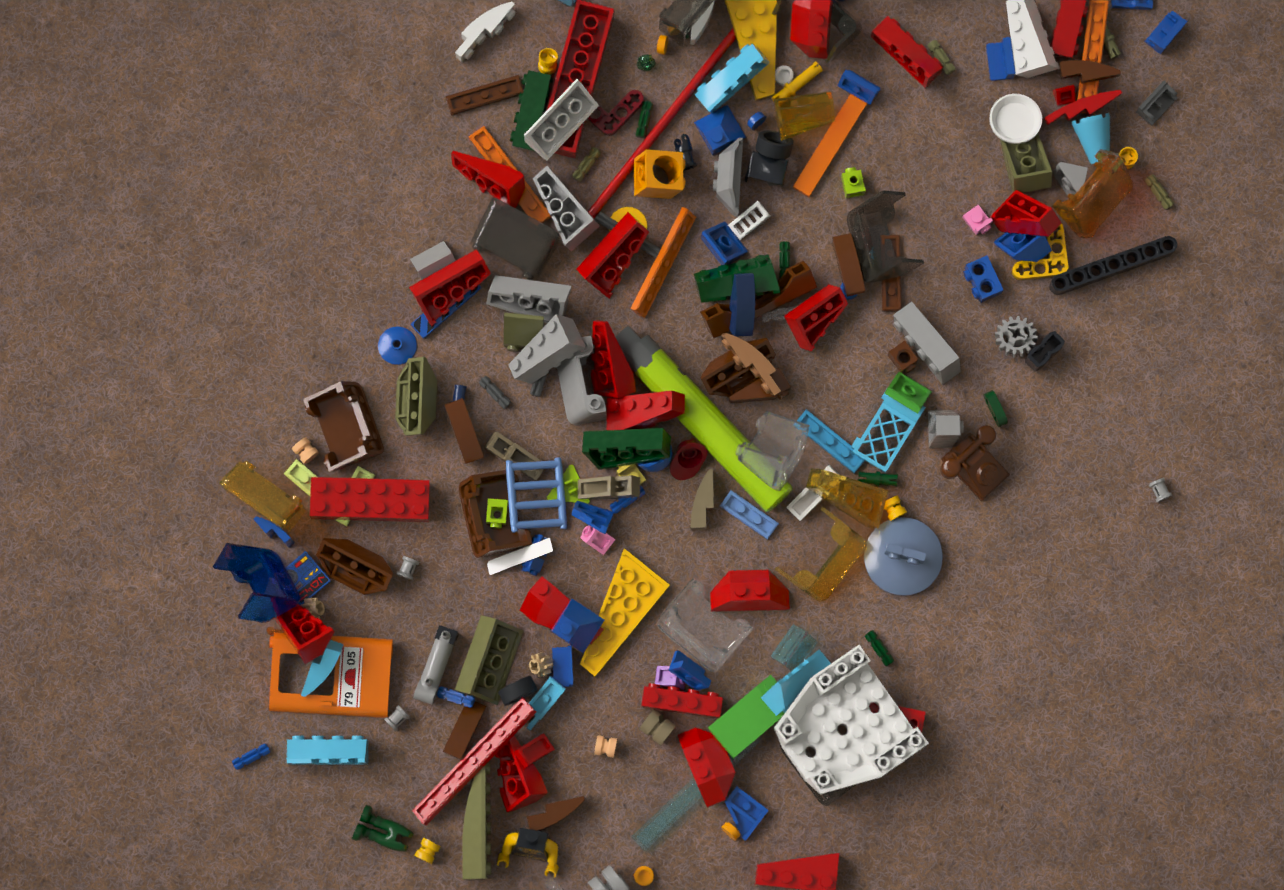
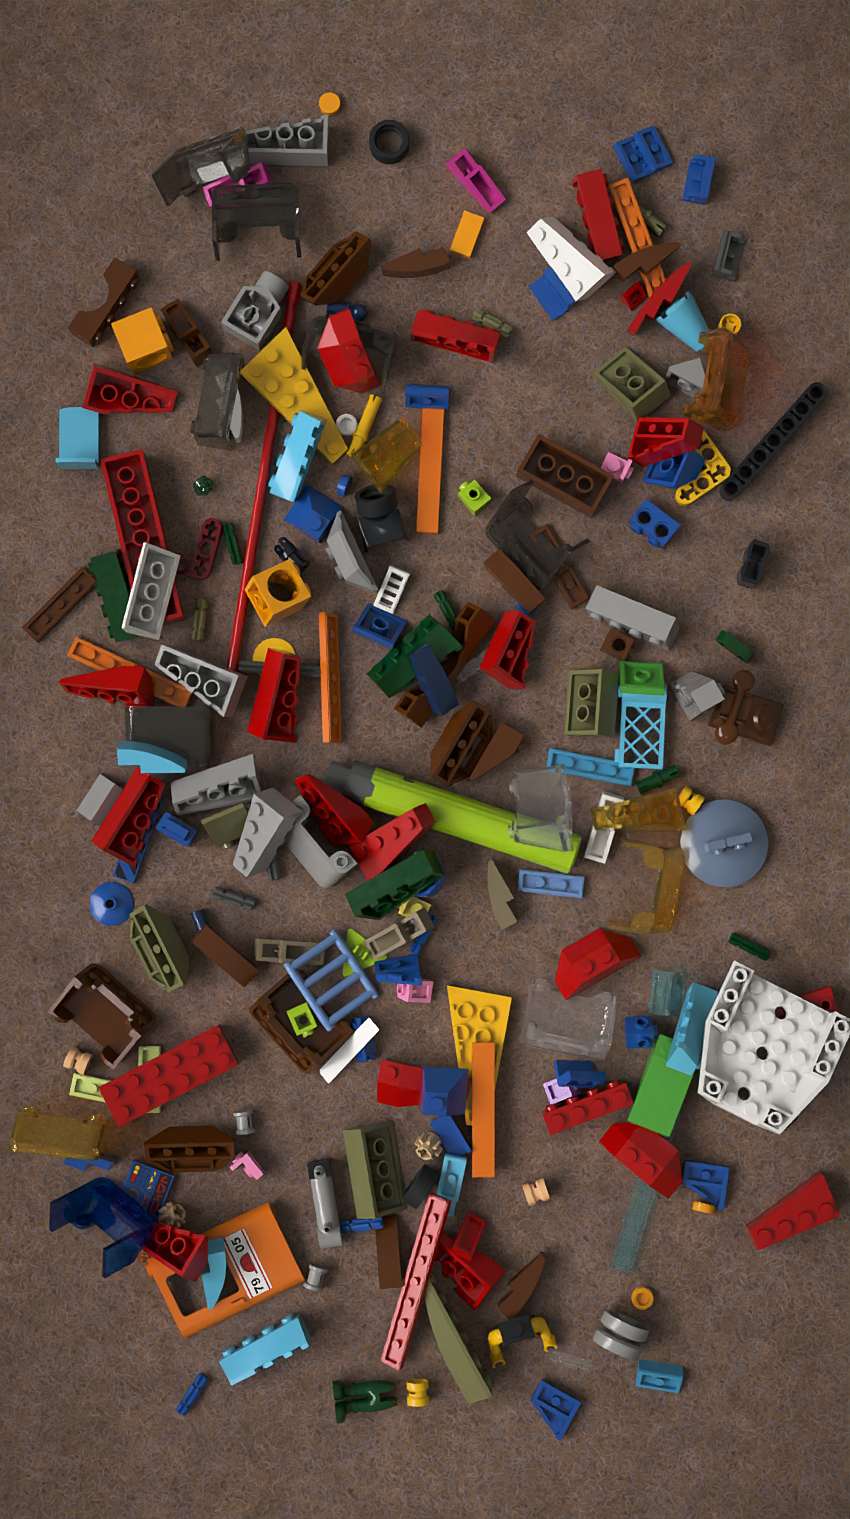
camera: 25 degrees left, 5 degrees up
(394, 606) = (251, 1166): none -> bright pink bracket
(480, 315) = (177, 829): none -> blue piece
(488, 23) = (24, 530): white slope -> none
(490, 247) = (150, 758): none -> medium azure slope
(548, 61) = (104, 537): yellow wheel -> none
(599, 658) = (483, 1109): none -> orange tile
(657, 727) = (576, 1145): dark tan wheel -> none
(662, 44) = (209, 458): light orange tile -> none
(688, 459) = (461, 862): dark red piece -> none
(748, 355) = (467, 729): medium nougat slope -> none
(755, 666) = (639, 1032): none -> blue brick
(858, 391) = (591, 703): none -> olive slope
(933, 204) = (565, 475): none -> reddish brown brick
(1014, 328) = (725, 564): light grey gear -> none
(1015, 118) = (599, 346): white piece -> none
(1159, 192) = (777, 343): olive axle -> none

